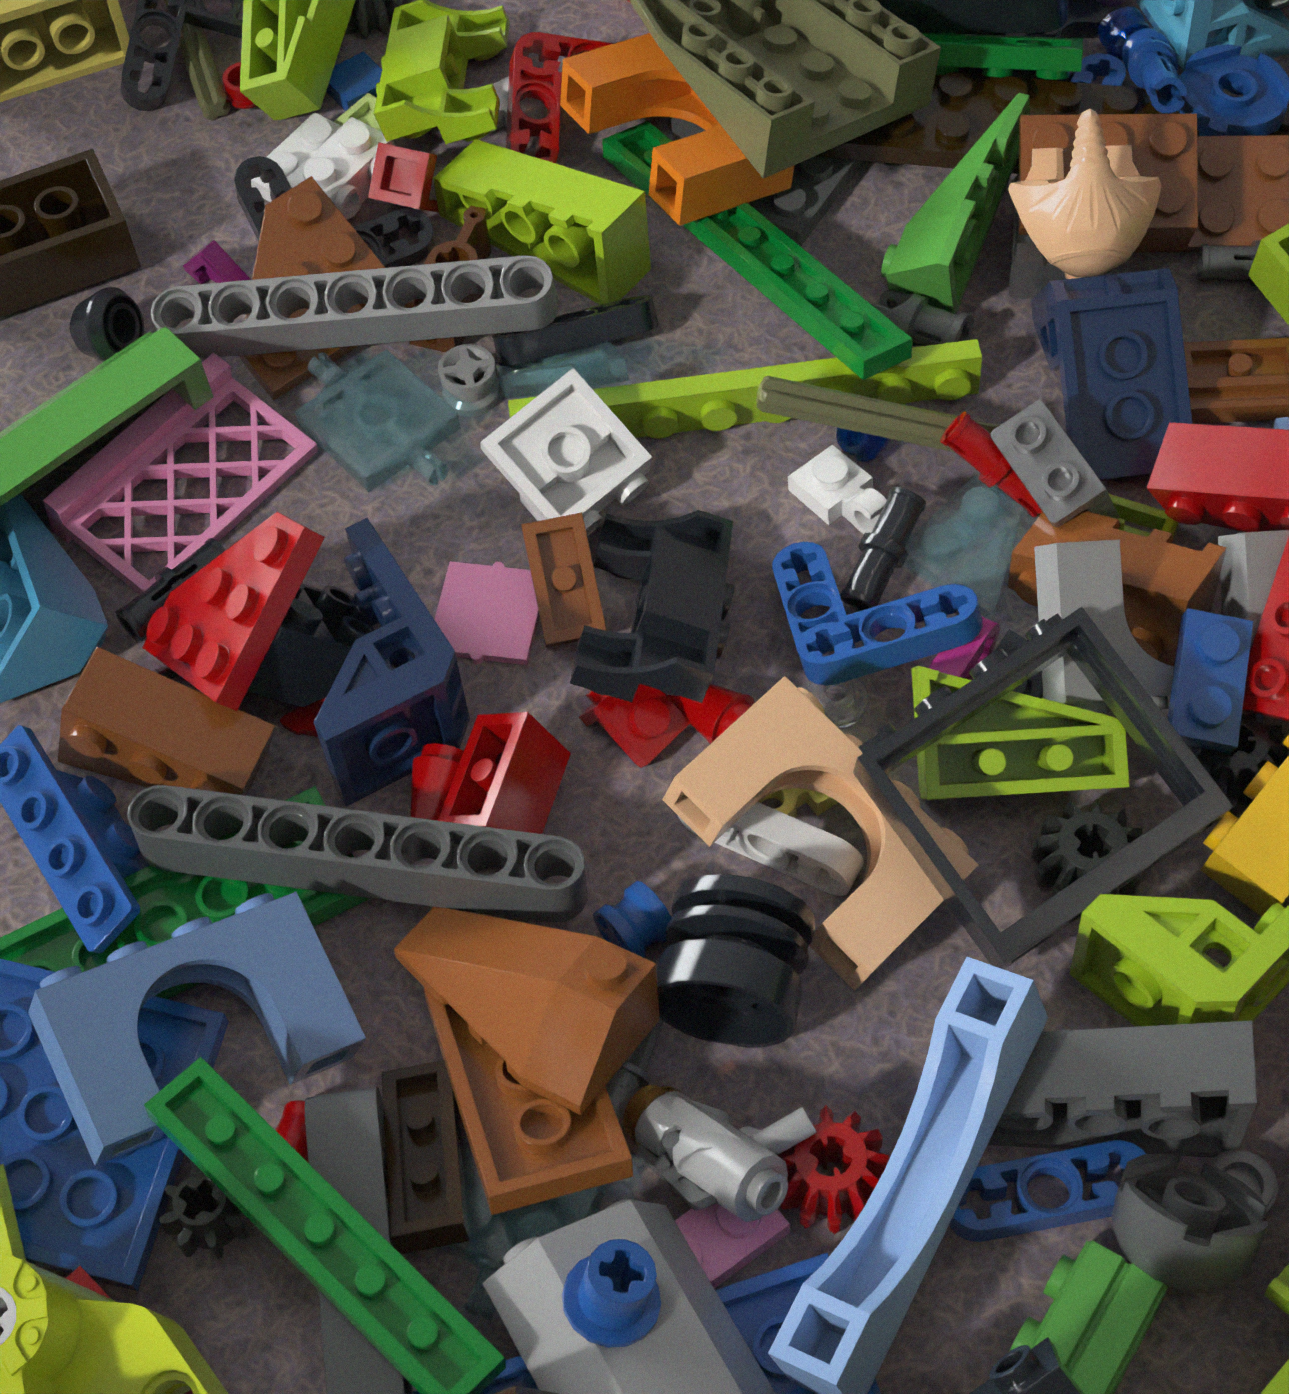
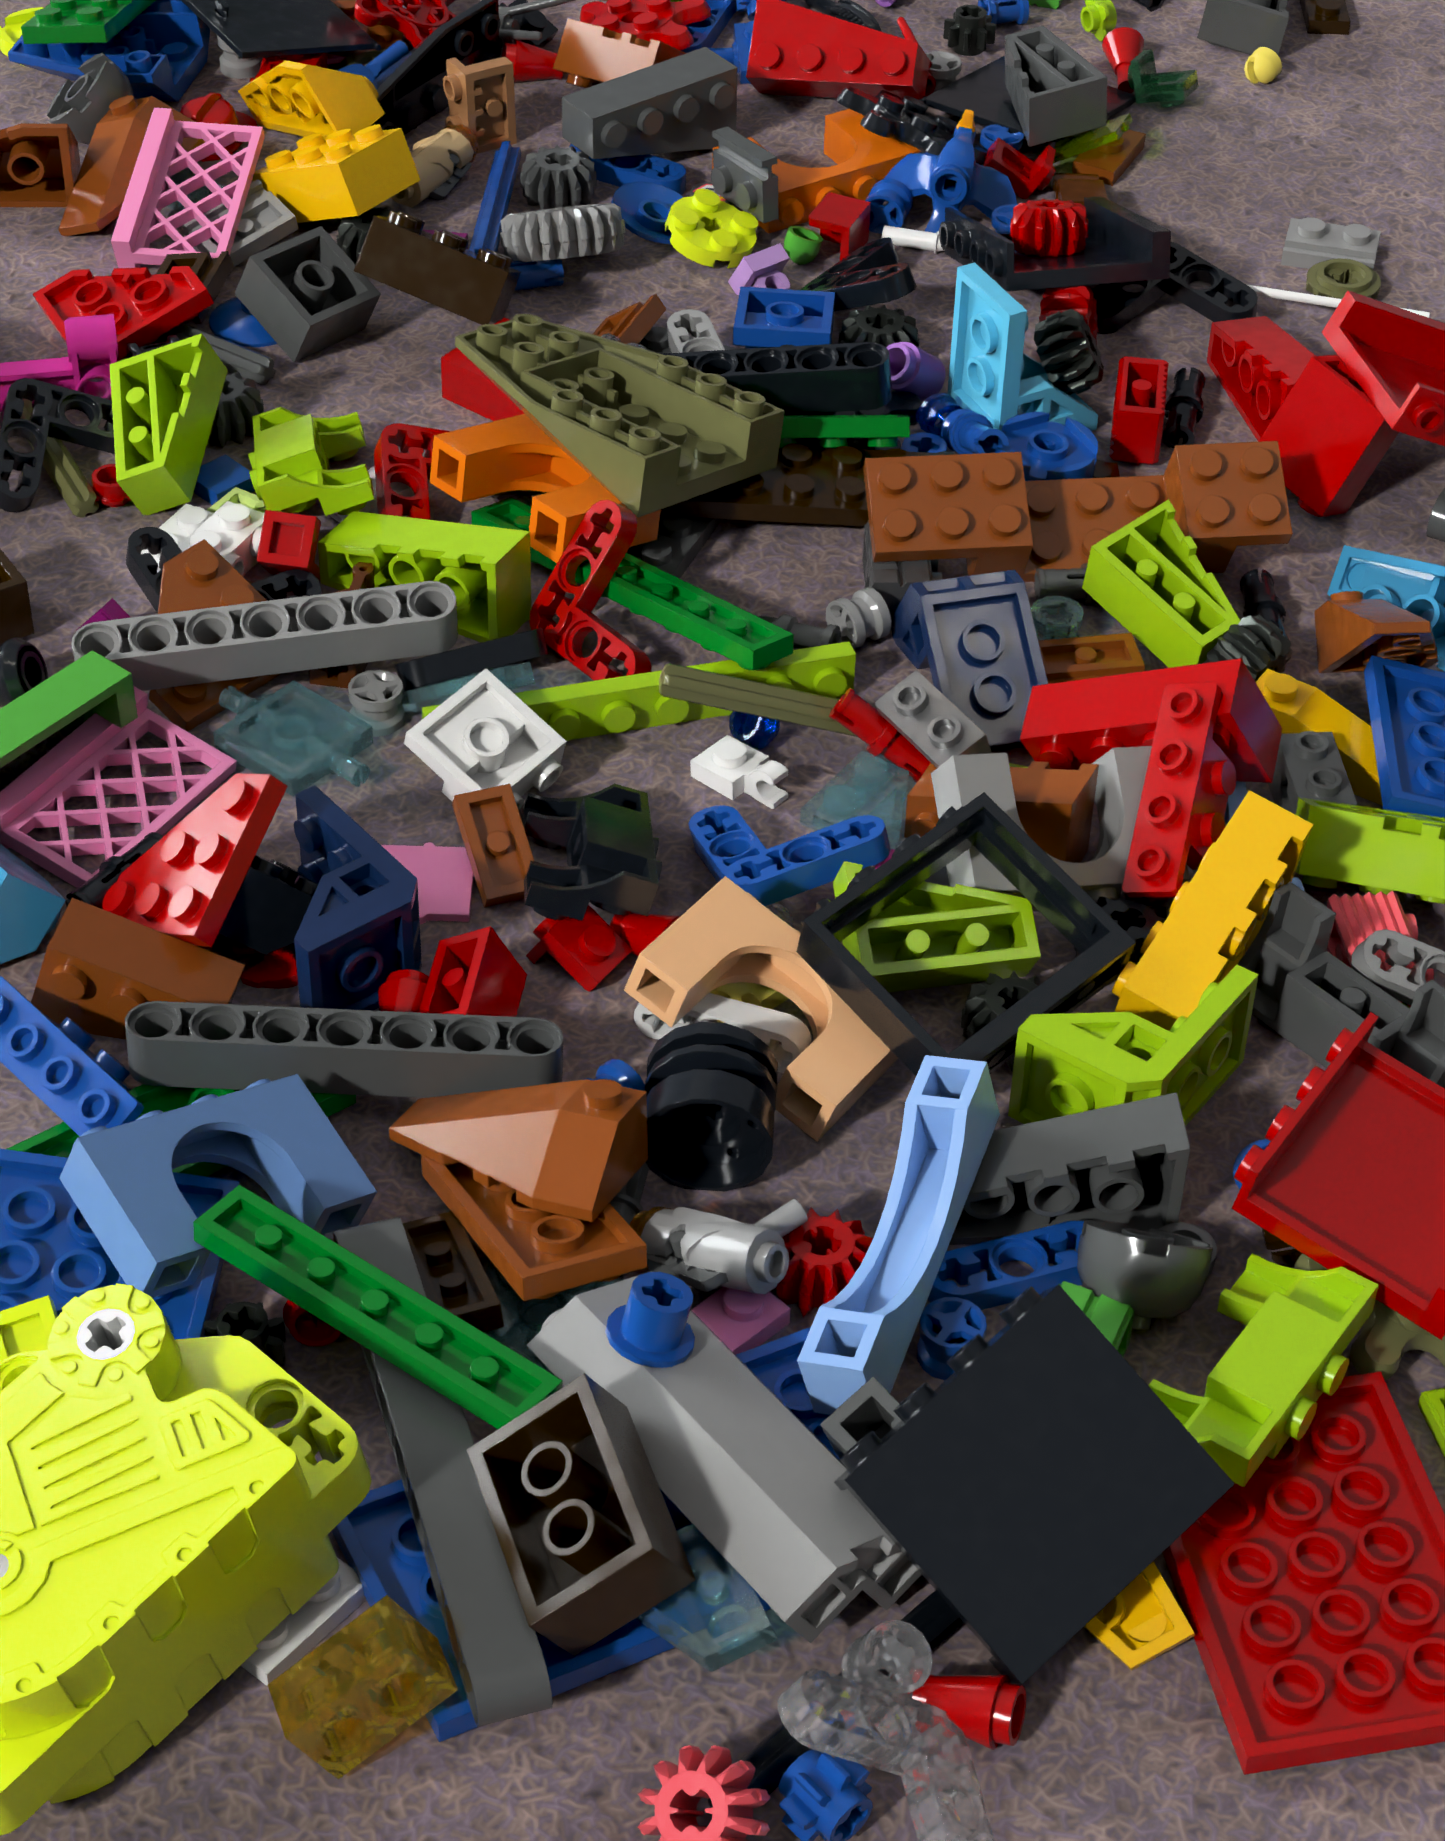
camera: 15 degrees left, 15 degrees down
(682, 288) = (576, 616): none -> red beam
(883, 549) = (790, 803): black pin -> none
(952, 225) = (812, 557): bright green wedge -> none
(967, 1272) = (942, 1324): none -> blue wheel
(996, 299) = (860, 617): none -> light grey wheel
(1093, 214) = (941, 527): light nougat piece -> none
(1210, 679) = (1102, 860): blue plate -> none
(1213, 315) = (1057, 617): none -> clear light blue wheel

